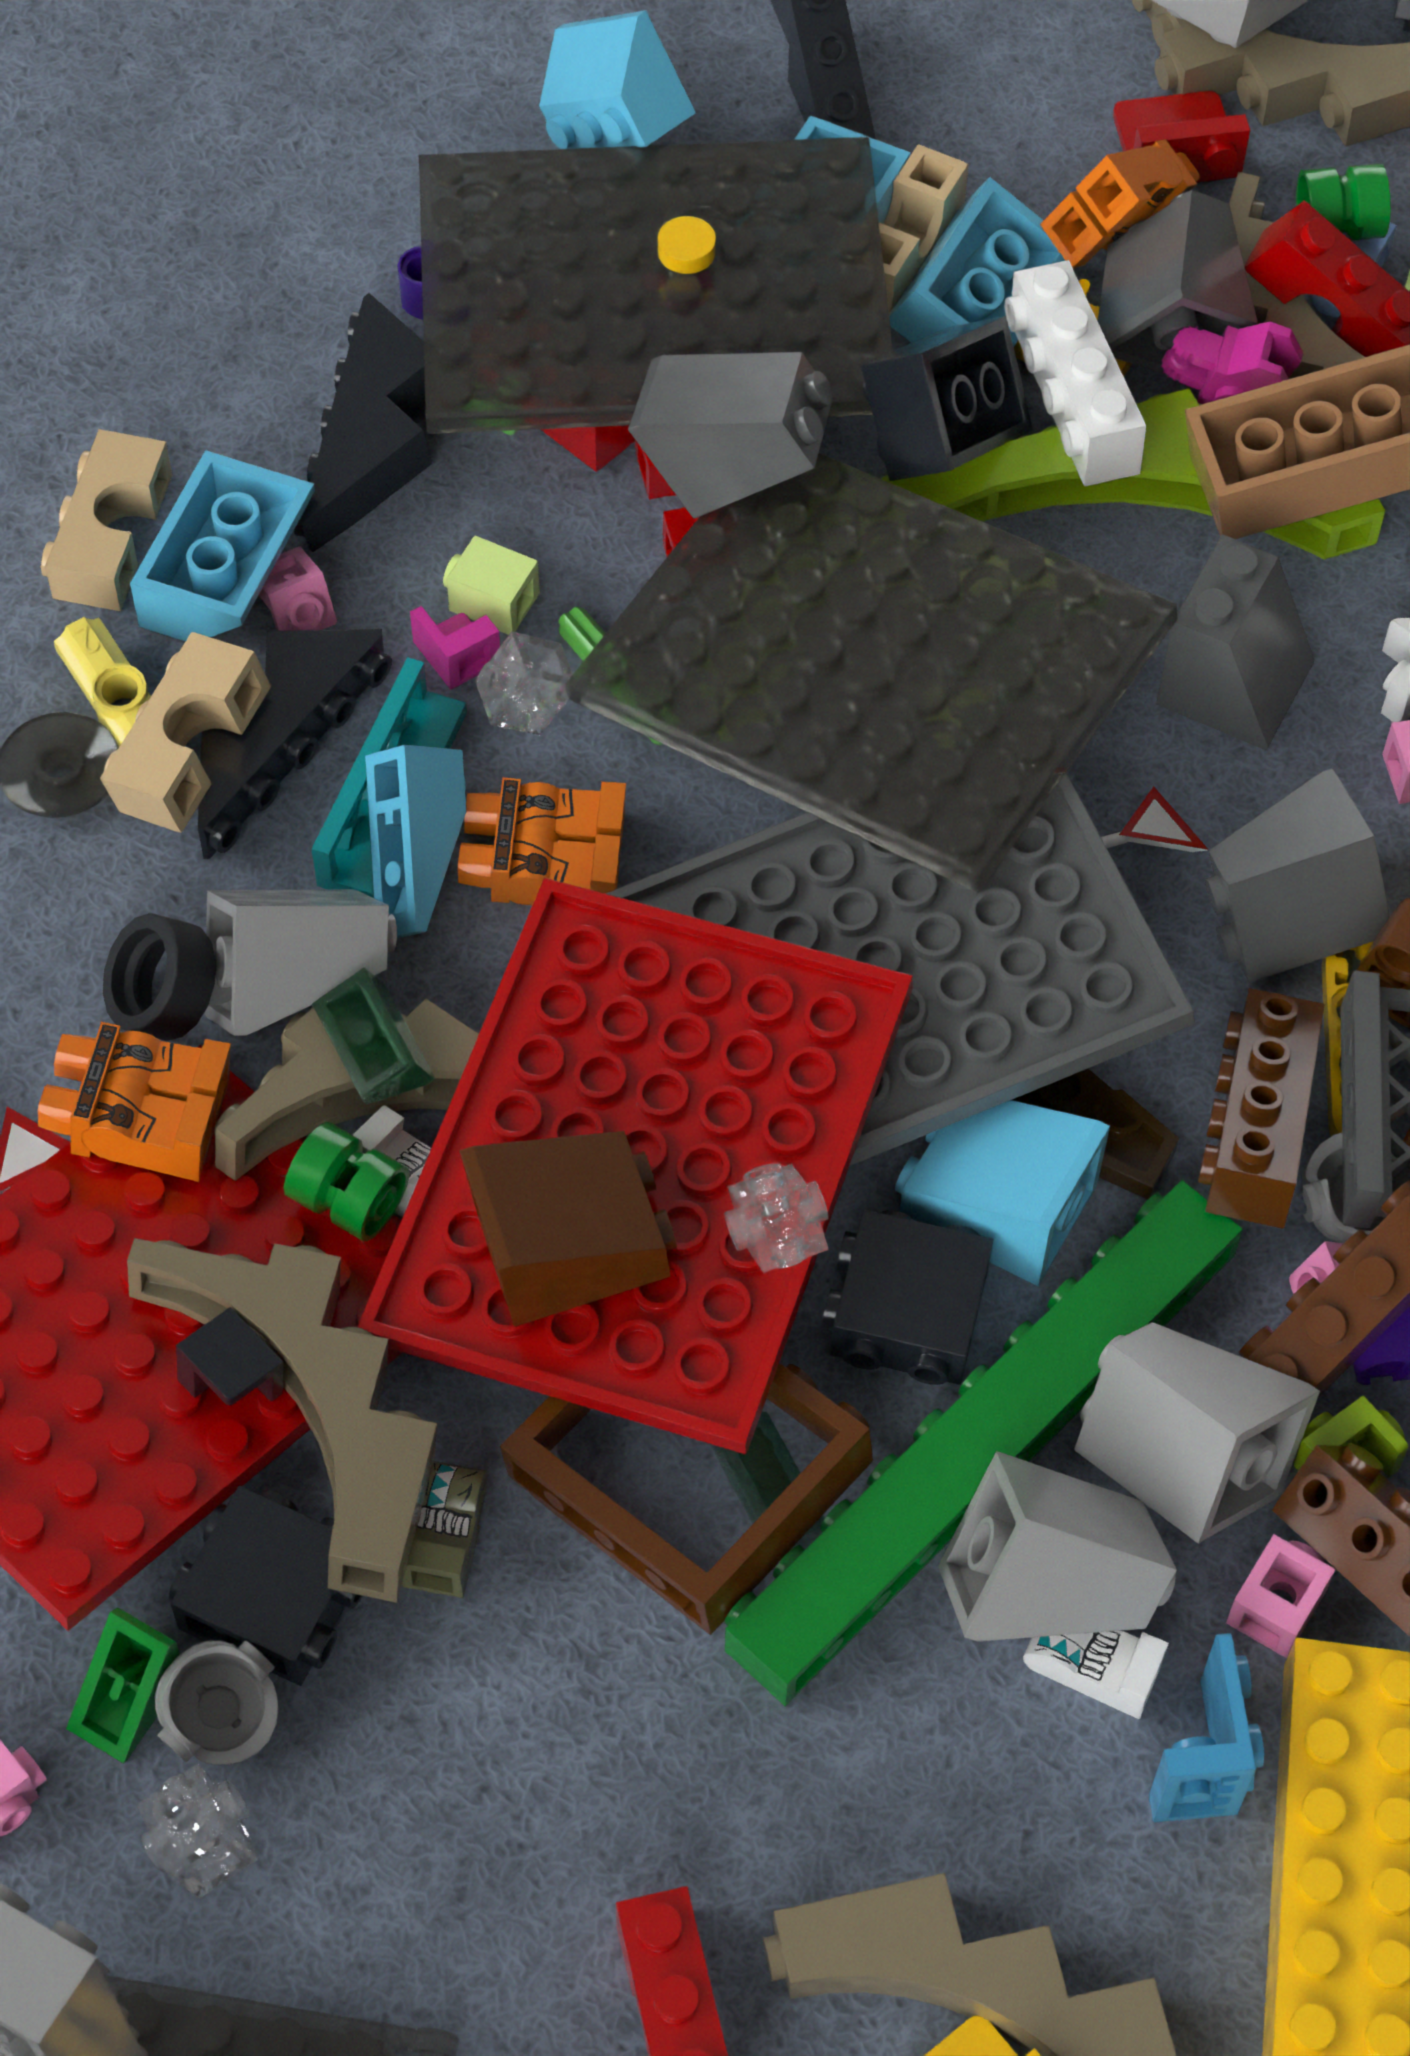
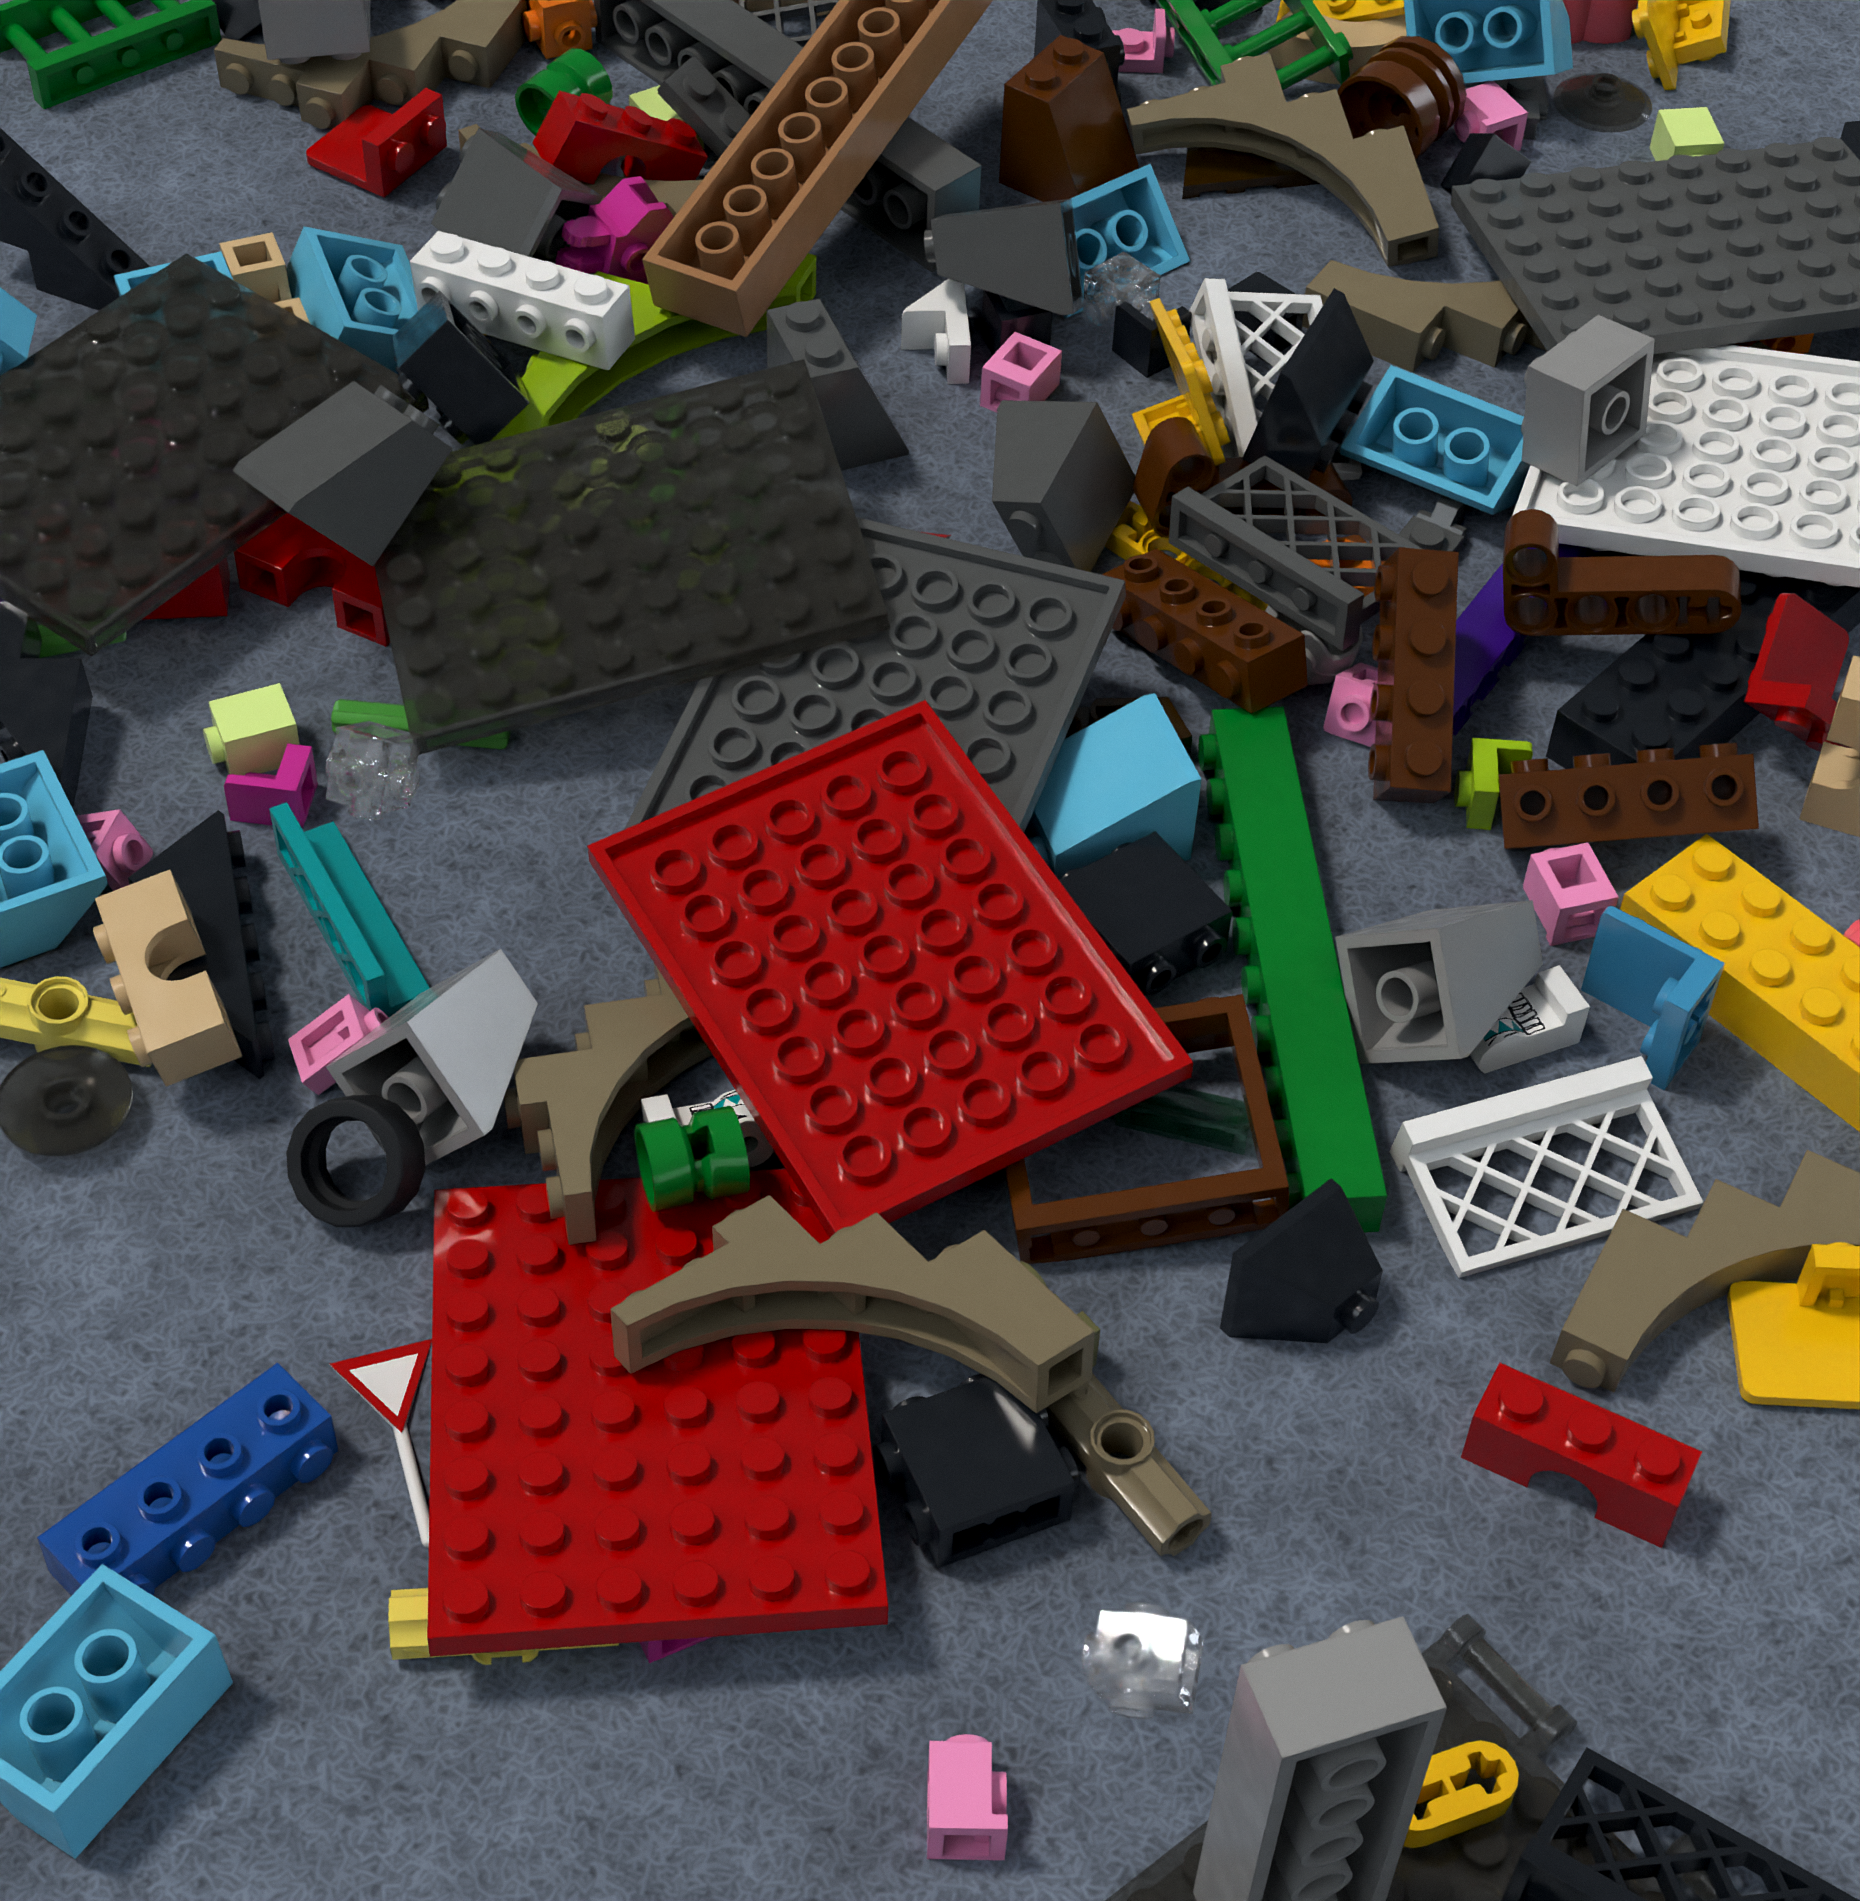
camera: 50 degrees left, 10 degrees down
(121, 1685) = (962, 1627): green slope -> none
(138, 1099) = (465, 1239): orange hips -> none
(217, 1703) = (1047, 1566): light grey cap -> none
(228, 1360) = (780, 1323): black panel -> none
(269, 870) = (329, 1038): none -> bright pink bracket
(366, 1715) = (1141, 1486): none -> dark tan piece
(372, 1038) = (591, 1049): clear green slope -> none
(414, 826) = (411, 909): medium azure slope -> none
(543, 835) = (518, 858): orange hips -> none
(567, 1220) = (911, 1026): reddish brown slope -> none
(652, 1680) = (1304, 1275): none -> black slope
(686, 244) = (151, 392): yellow tile -> none
(777, 1216) = (1053, 893): clear brick -> none
(989, 1732) = (1513, 1124): none -> white fence
(1115, 196) = (410, 191): orange hips -> none
(1193, 1428) = (1409, 835): light grey slope -> none

